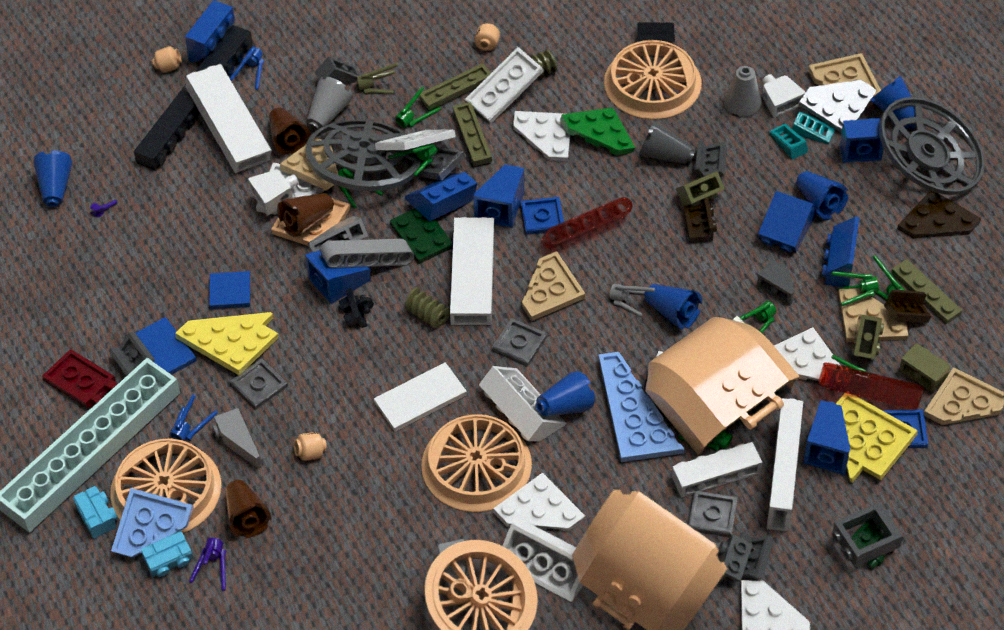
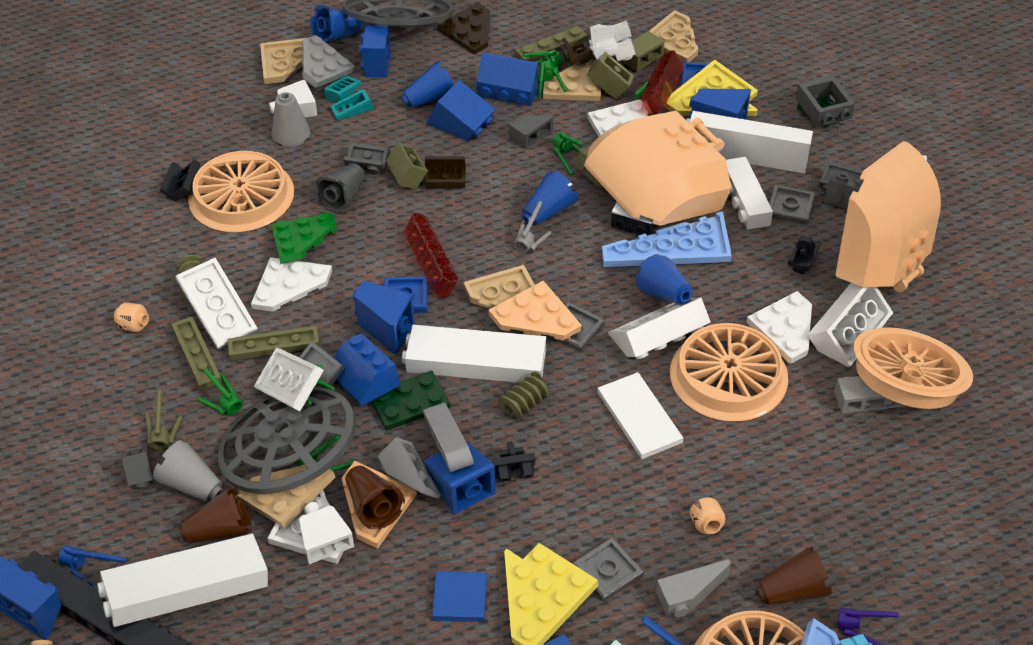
camera: 85 degrees left, 5 degrees down
(521, 306) = (536, 313): none -> light nougat plate
(913, 329) = (606, 40): none -> white bracket

